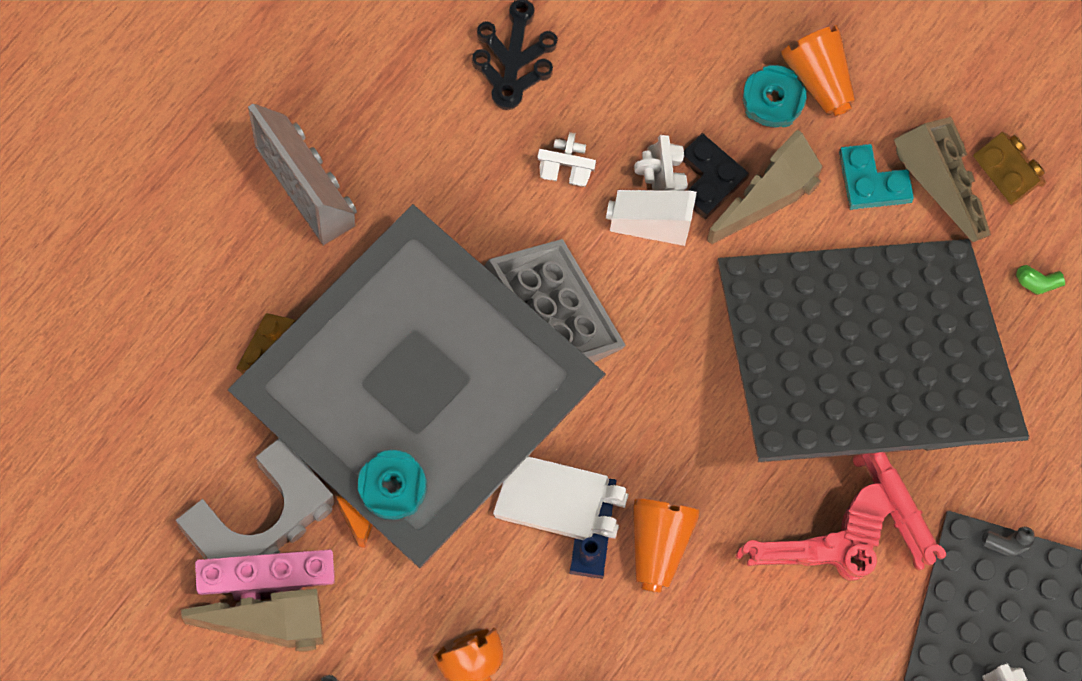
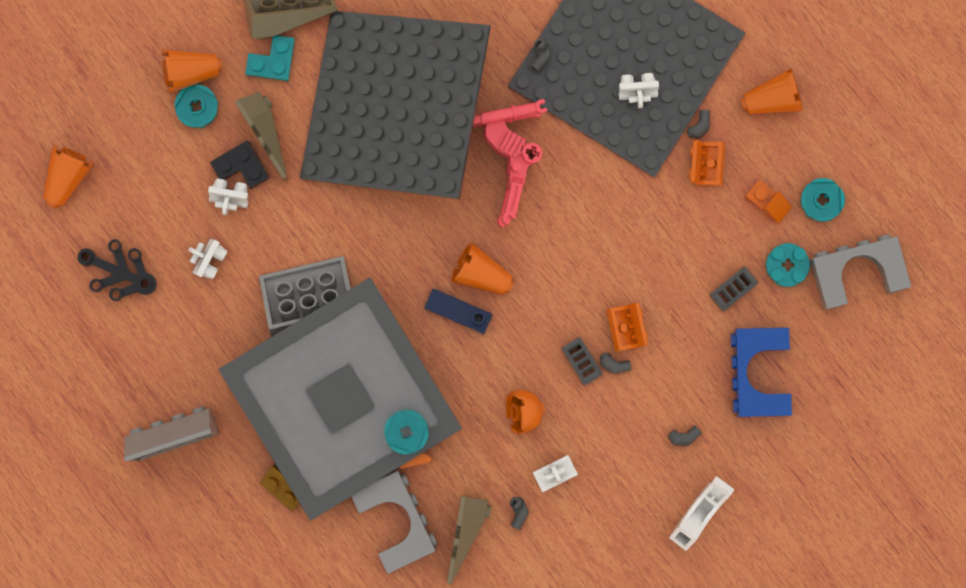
camera: 70 degrees left, 15 degrees up
(264, 574) = (437, 525): bright pink bracket -> none
(559, 499) = (437, 327): white tile -> none
(652, 214) = (261, 213): white slope -> none

